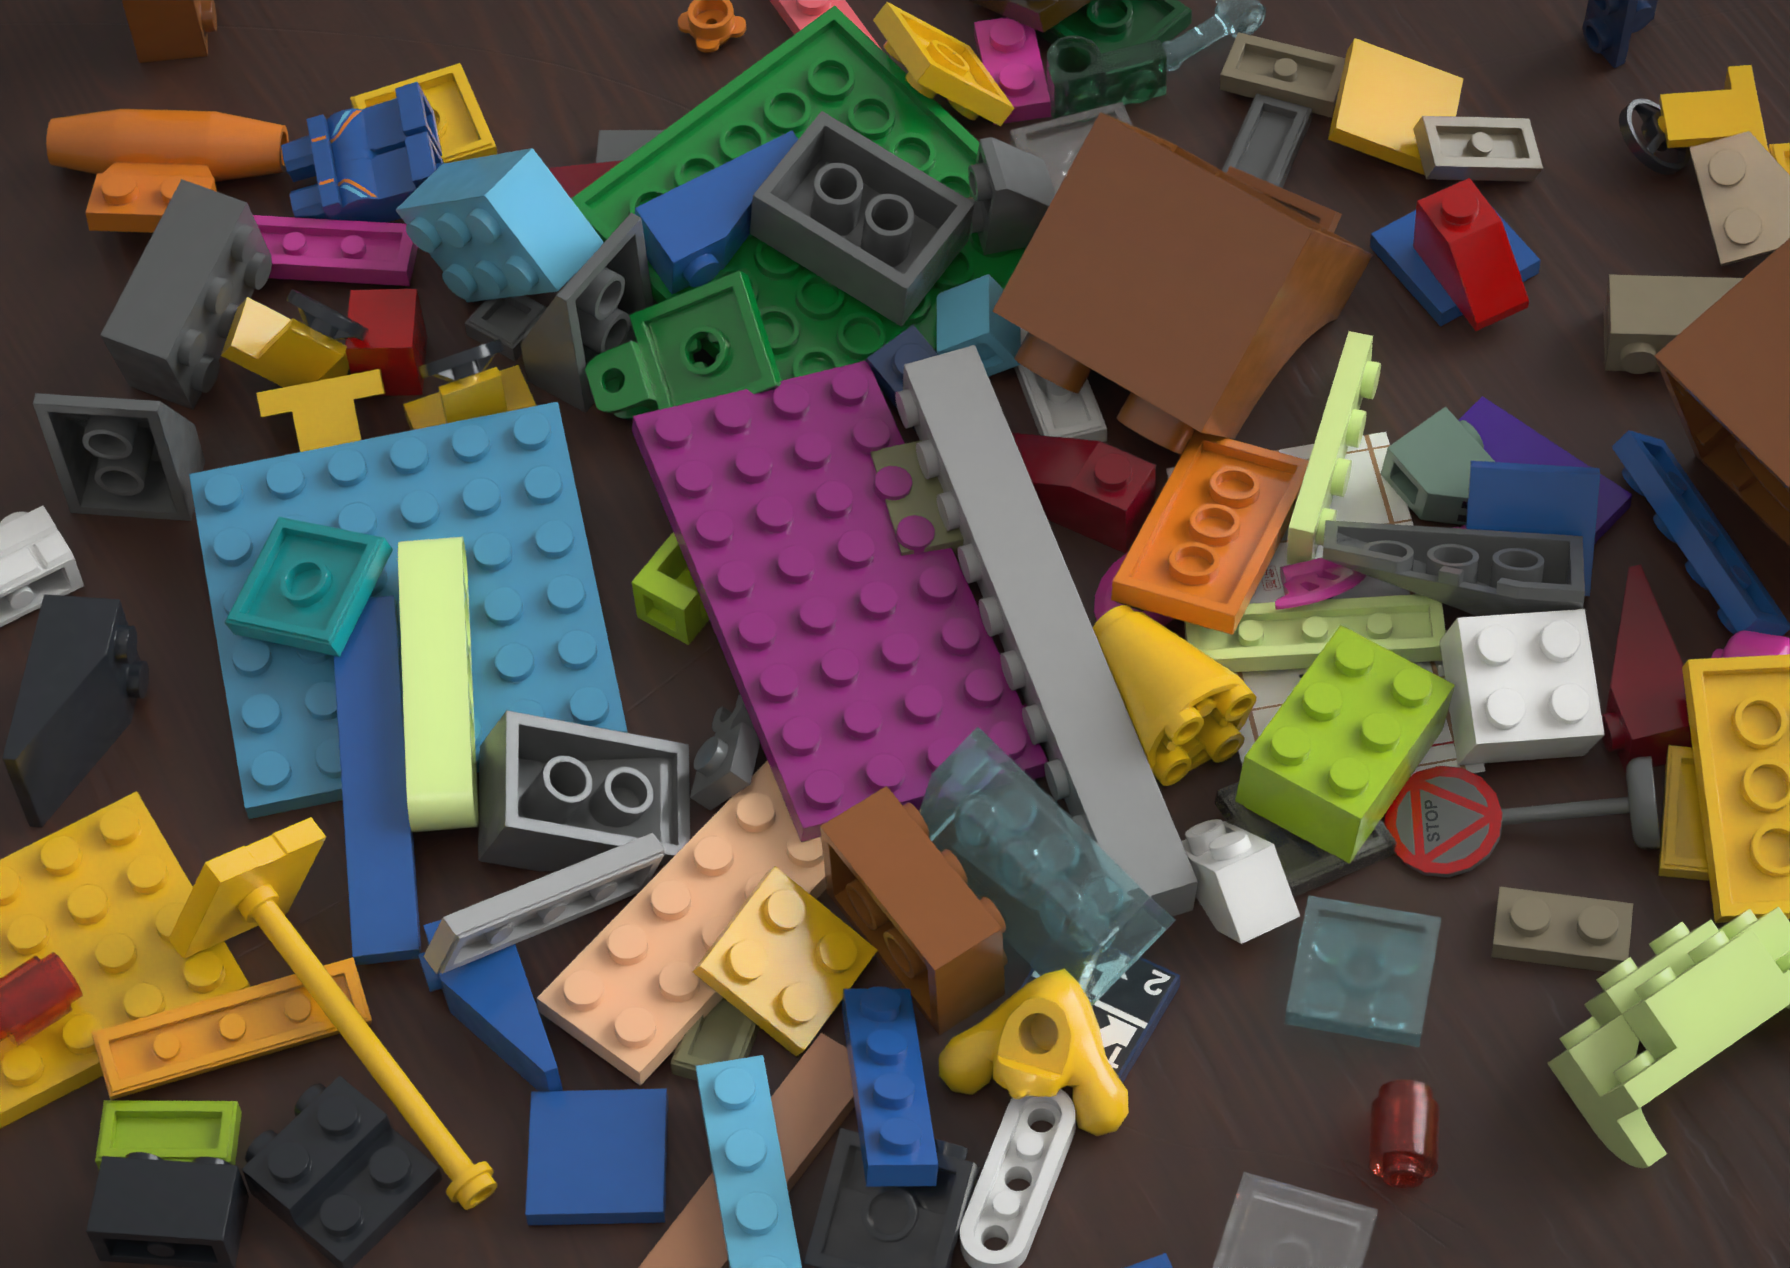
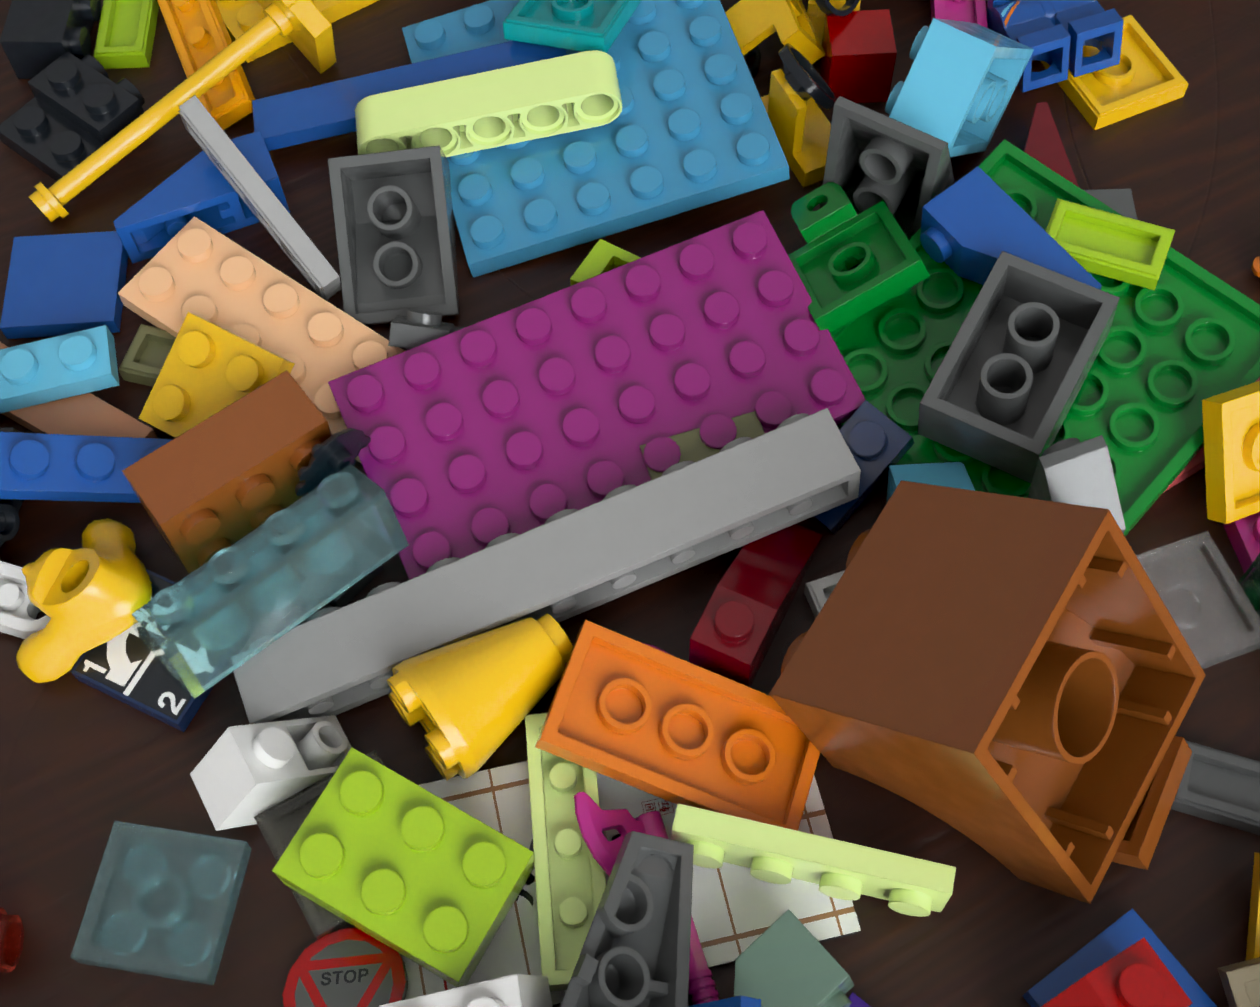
camera: 85 degrees right, 5 degrees up
(717, 129) = (1111, 243): none -> lime tile
(914, 789) = (330, 458): none -> black piece

